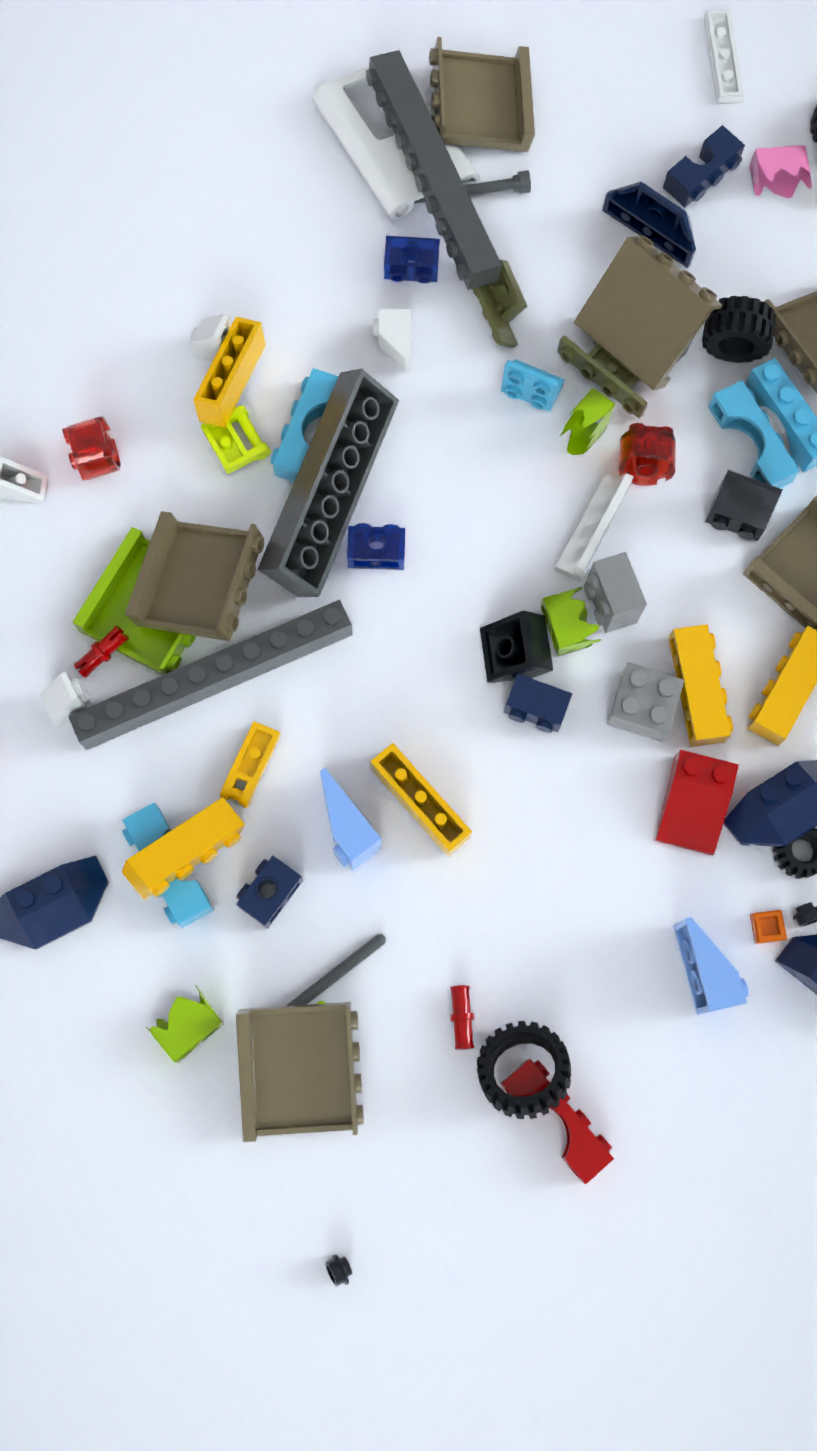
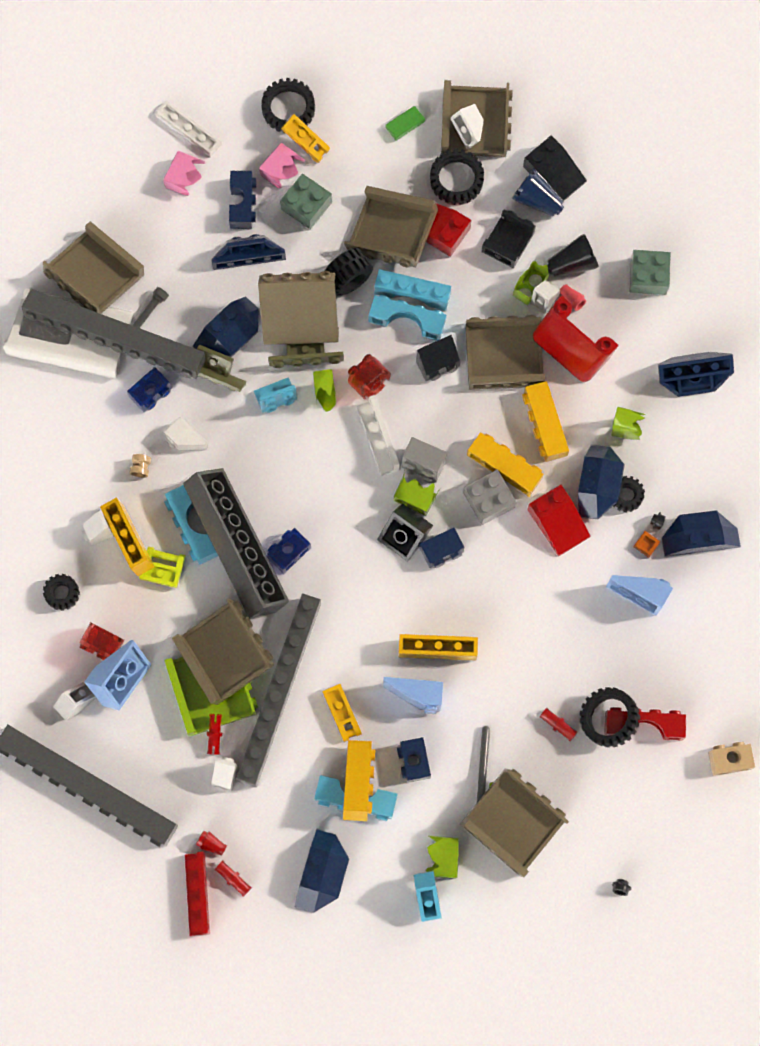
camera: 45 degrees left, 0 degrees up
(72, 496) = (118, 675): none -> light blue slope
(108, 353) = (53, 583): none -> black tyre
(120, 1048) = (427, 896): none -> medium azure brick
(322, 321) = (140, 465): none -> tan wheel
(556, 275) = (231, 328): none -> dark blue wedge
(633, 1273) = (720, 763): none -> tan brick
(671, 88) = (182, 173): none -> bright pink piece
(770, 227) = (306, 201): none -> sand green brick

